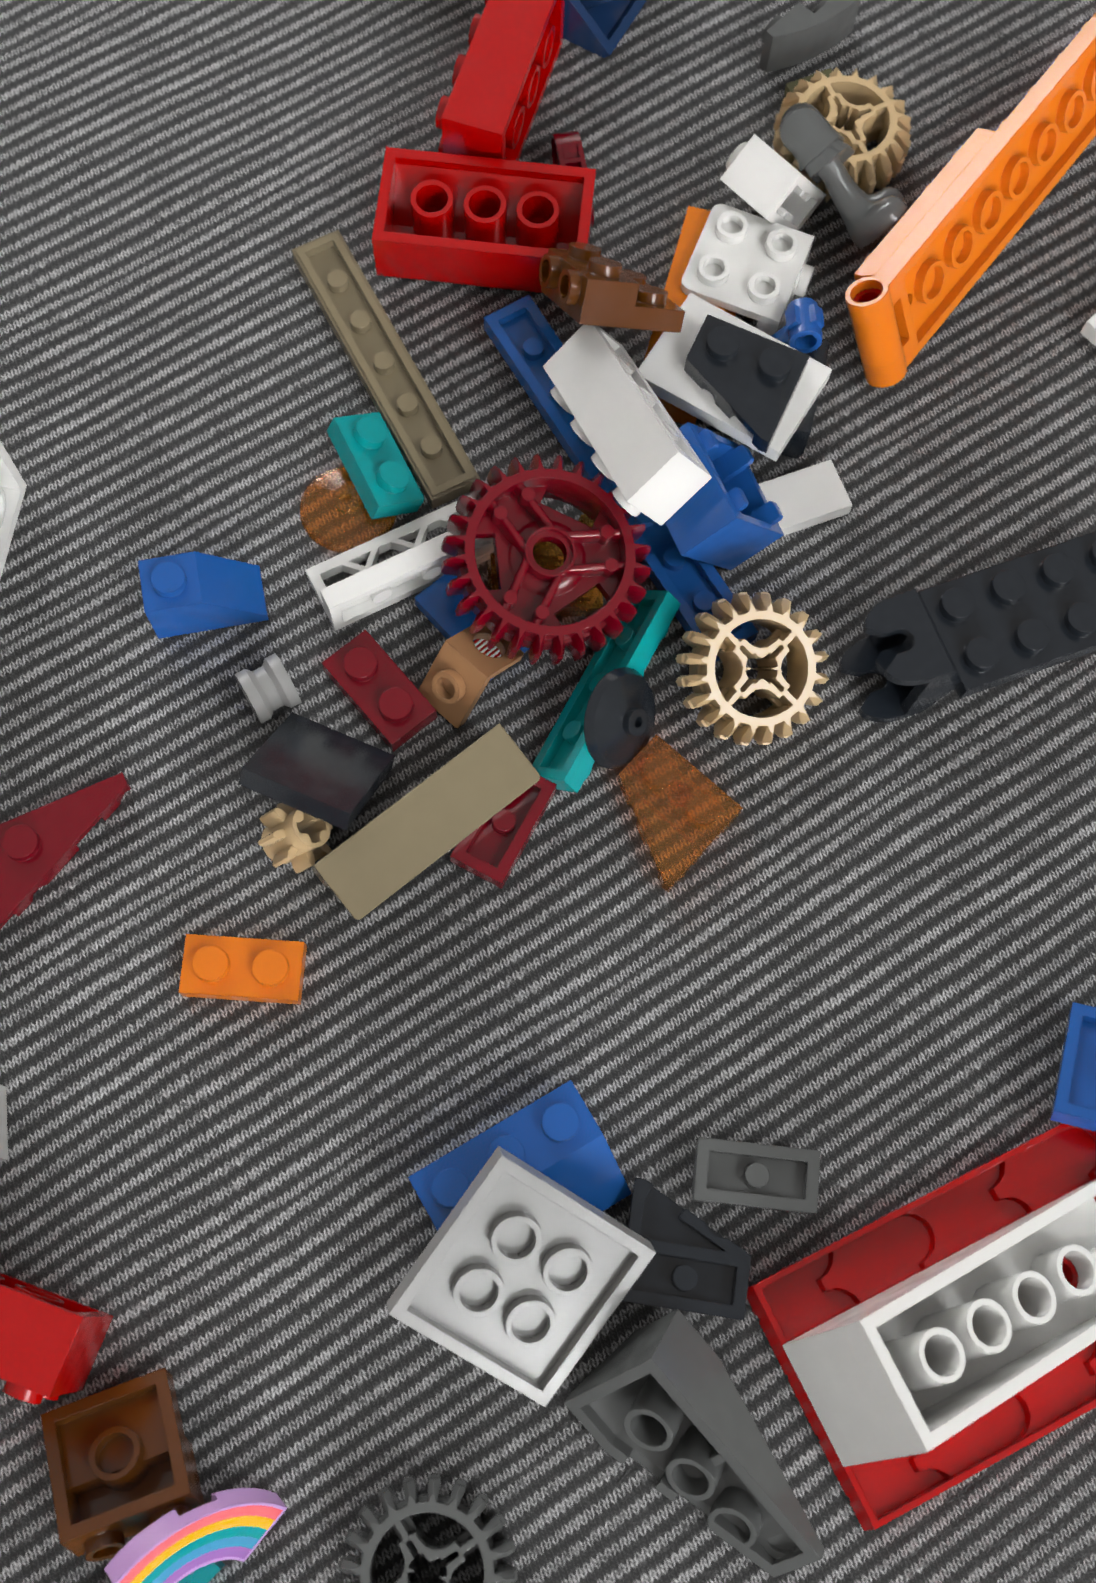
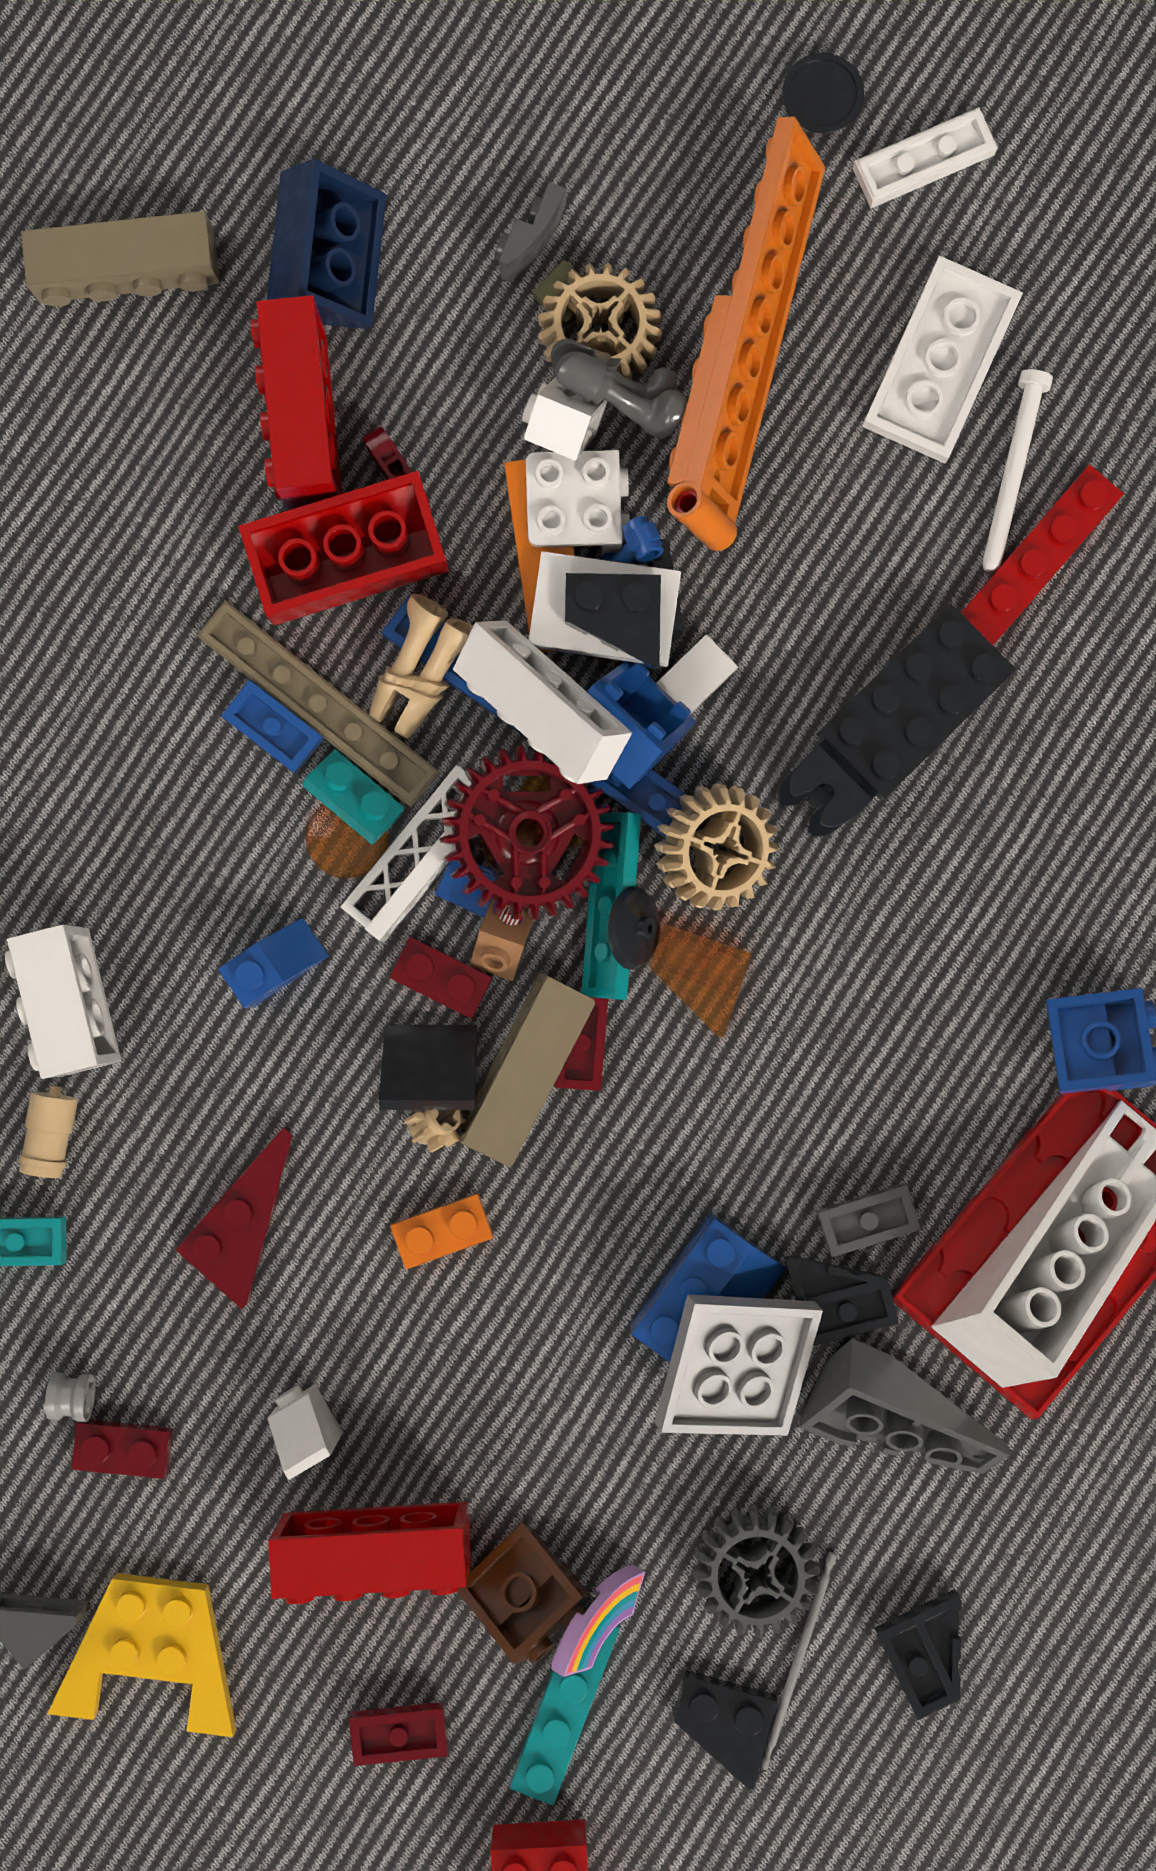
camera: 20 degrees left, 15 degrees up
(268, 688) = (359, 1017): light grey wheel -> none
(325, 364) = (272, 727): none -> blue plate
(483, 386) = (423, 688): none -> tan piece
(603, 293) = (478, 590): reddish brown plate -> none

